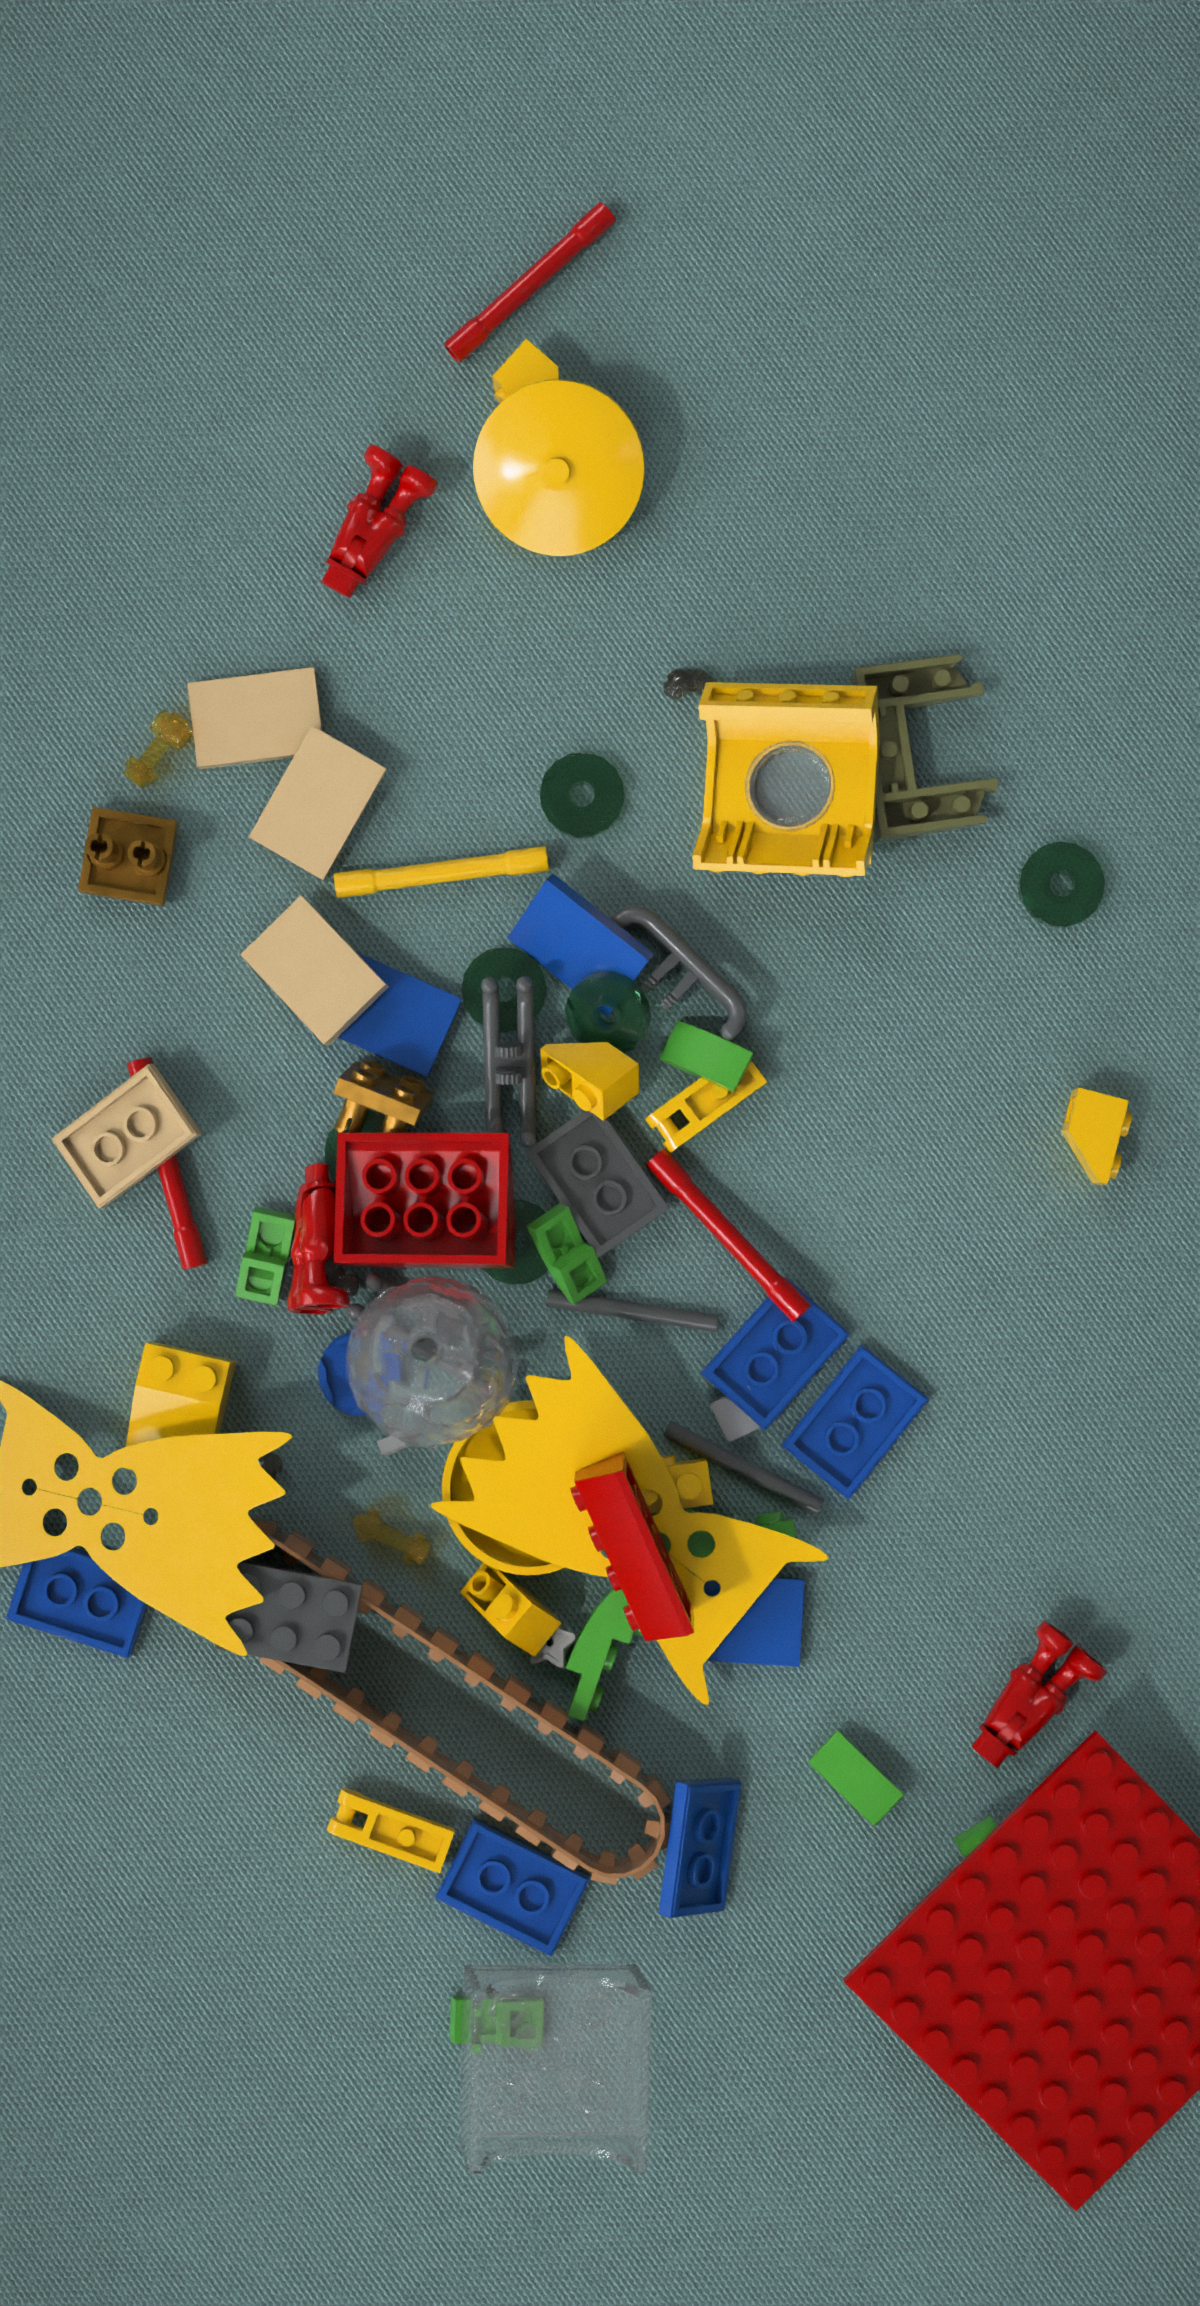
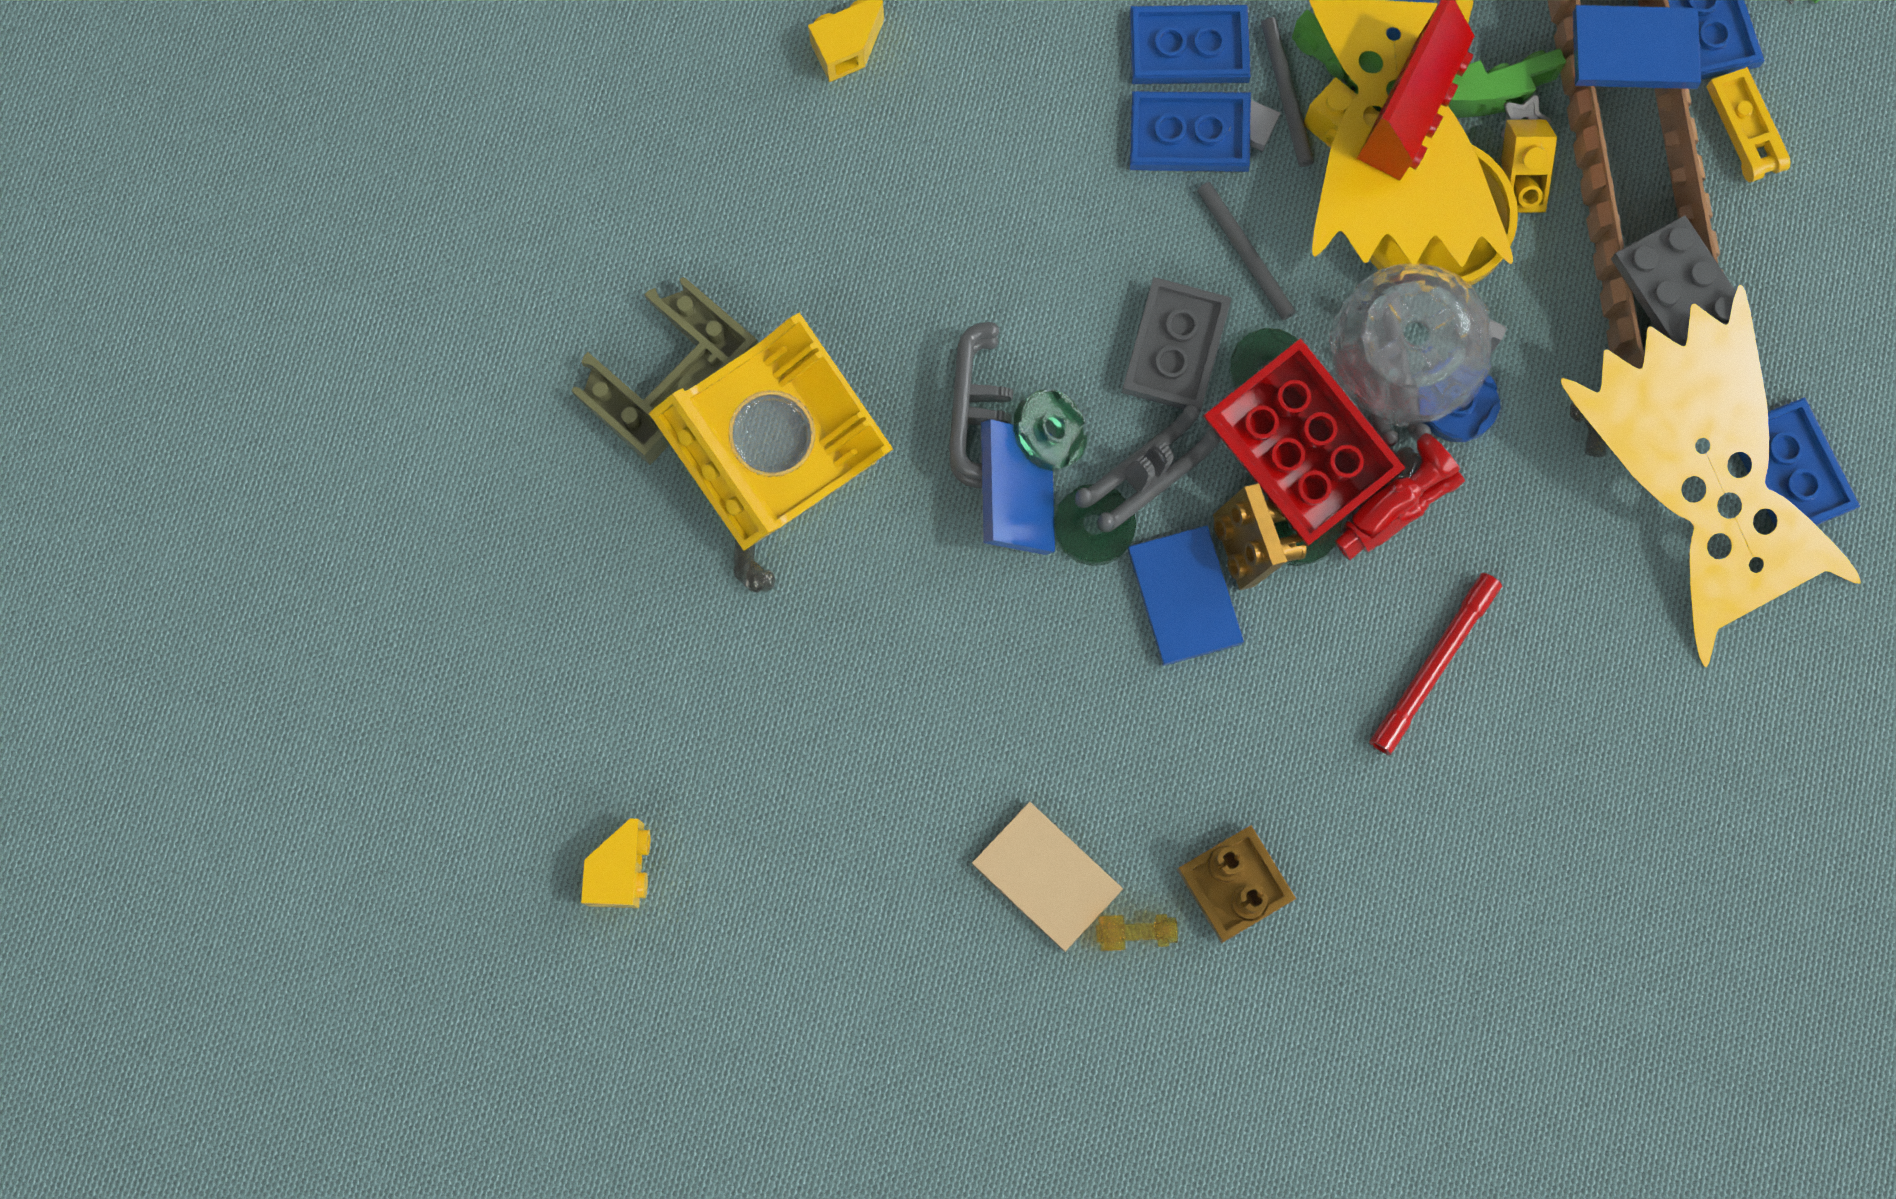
camera: 130 degrees left, 10 degrees down
(126, 1136) = (1444, 706): tan tile -> none
(178, 1393) = (1596, 509): yellow slope -> none
(266, 1256) = (1437, 536): bright green slope -> none
(314, 971) = (1202, 669): tan tile -> none
(317, 802) = (1073, 772): tan tile -> none
(366, 530) = (831, 909): red piece -> none
(370, 1526) = (1560, 301): clear yellow bar -> none
(509, 863) = (997, 594): yellow piece -> none
(523, 1771) = (1636, 47): none -> blue tile
(559, 467) = (664, 795): yellow dish -> none
(565, 1254) = (1249, 321): bright green slope -> none
(581, 235) = (462, 936): red piece -> none
(586, 820) = (906, 608): clear green tile -> none
(591, 1075) = (1105, 404): yellow slope -> none
(701, 1105) = (1052, 315): yellow plate -> none
(706, 1056) = (1021, 338): bright green slope -> none
(777, 1287) = (1128, 286): red piece -> none
(1086, 884) = (681, 176): clear green tile -> none

